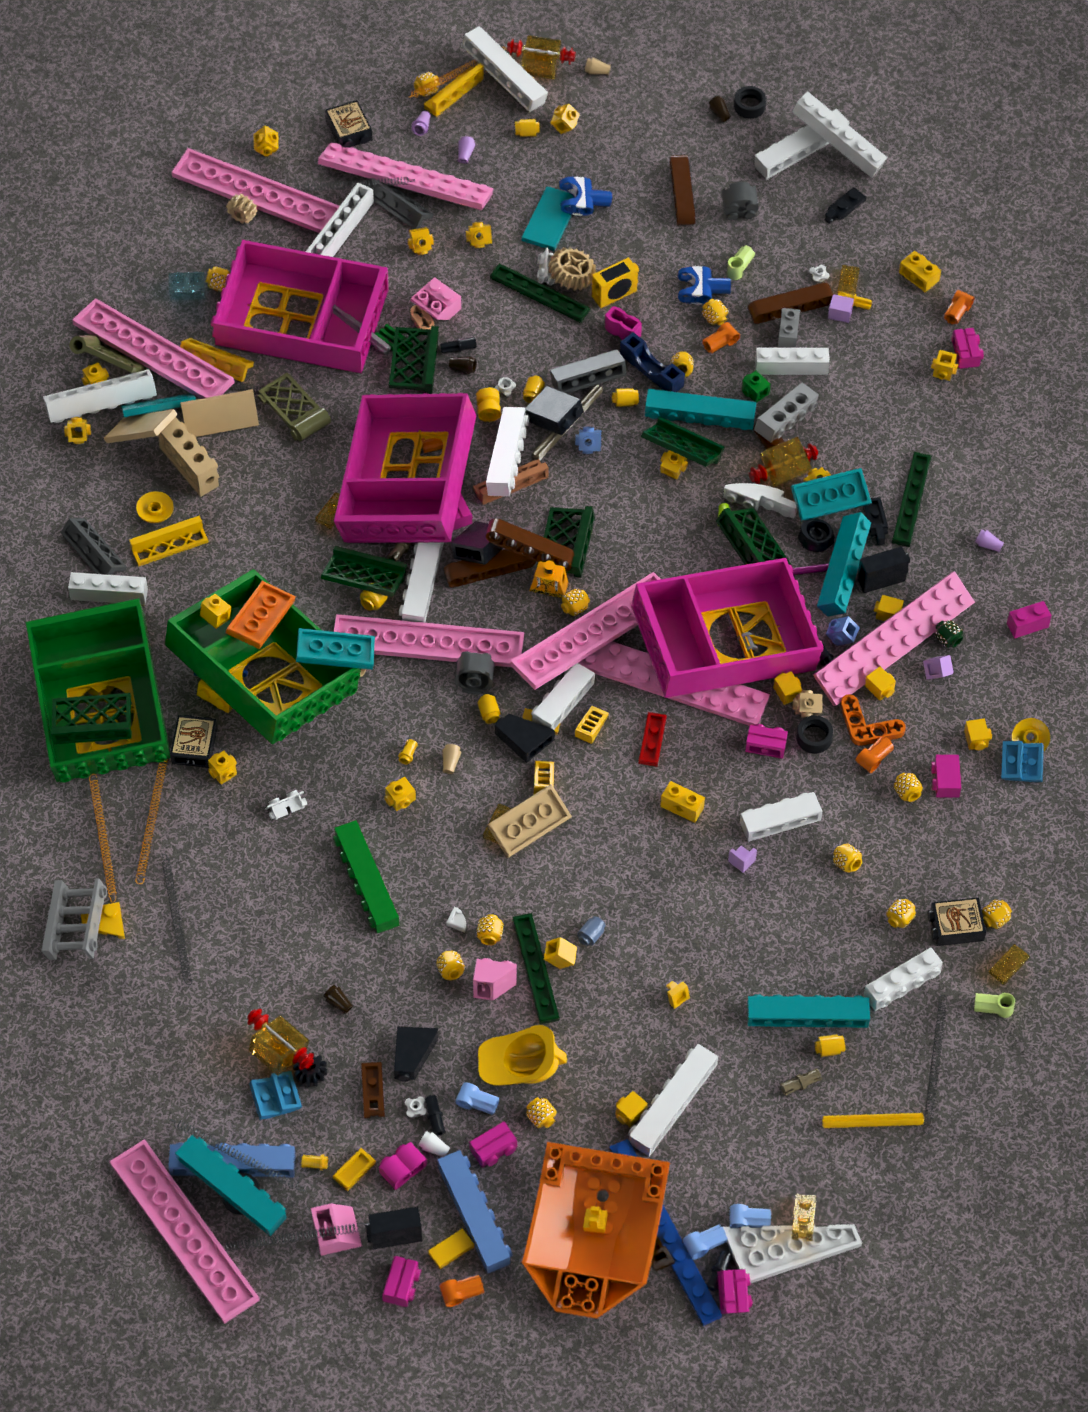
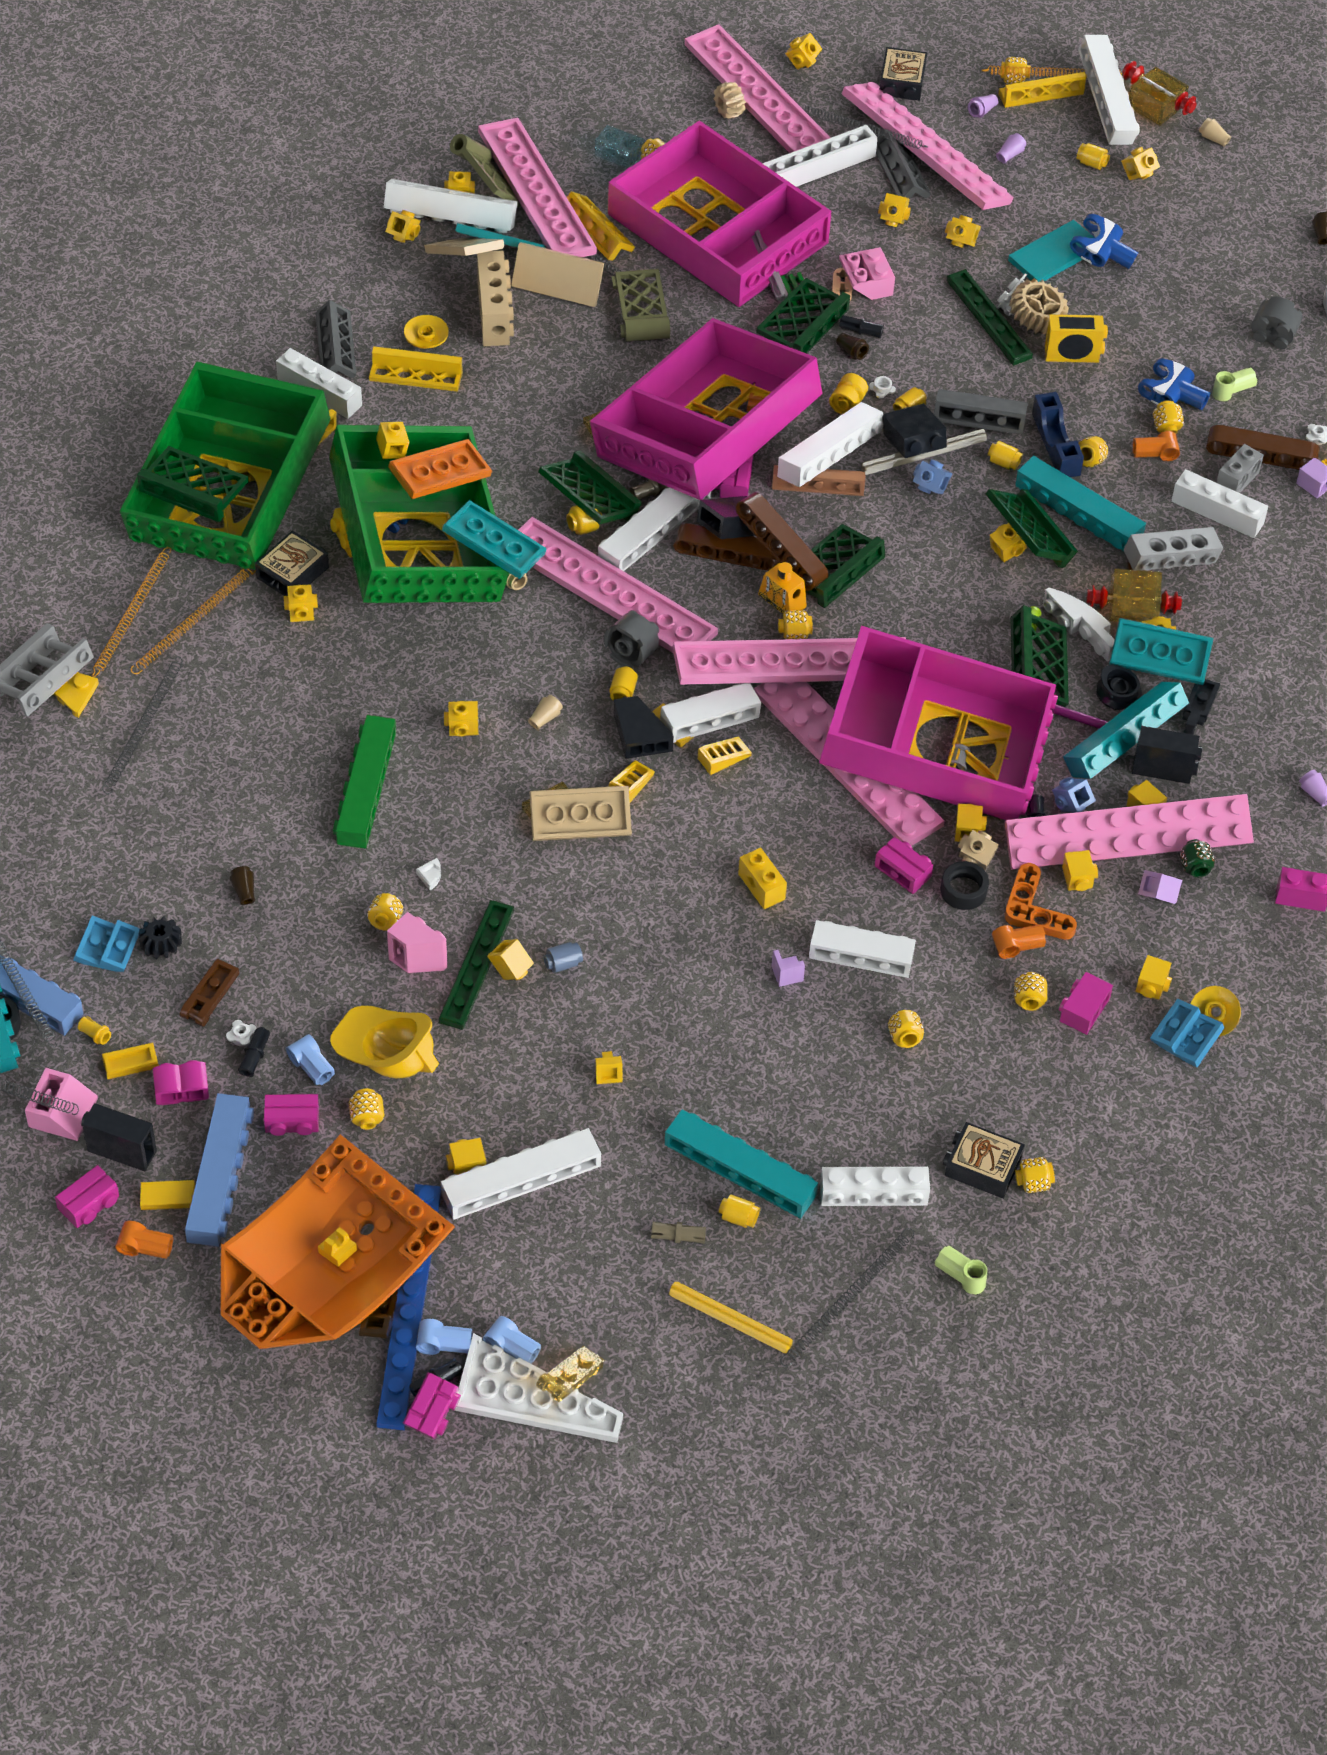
camera: 30 degrees right, 5 degrees down
(278, 806) = (330, 669): white hinge -> none
(278, 1043) = (143, 890): clear yellow brick -> none
(405, 756) = (501, 686): yellow pin -> none
(412, 1050) = (280, 975): black slope -> none
(433, 1144) = (229, 1078): white cone -> none
(489, 929) = (454, 898): yellow head -> none
(621, 324) = (1051, 379): dark pink brick -> none
(652, 739) = (780, 802): red tile -> none
(682, 190) = (1221, 286): reddish brown beam -> none
(755, 386) = (1159, 510): green brick -> none
(901, 913) = (924, 1116): yellow head -> none
(911, 499) = (1257, 705): dark green tile -> none
(1009, 964) = (1012, 1237): clear yellow plate -> none

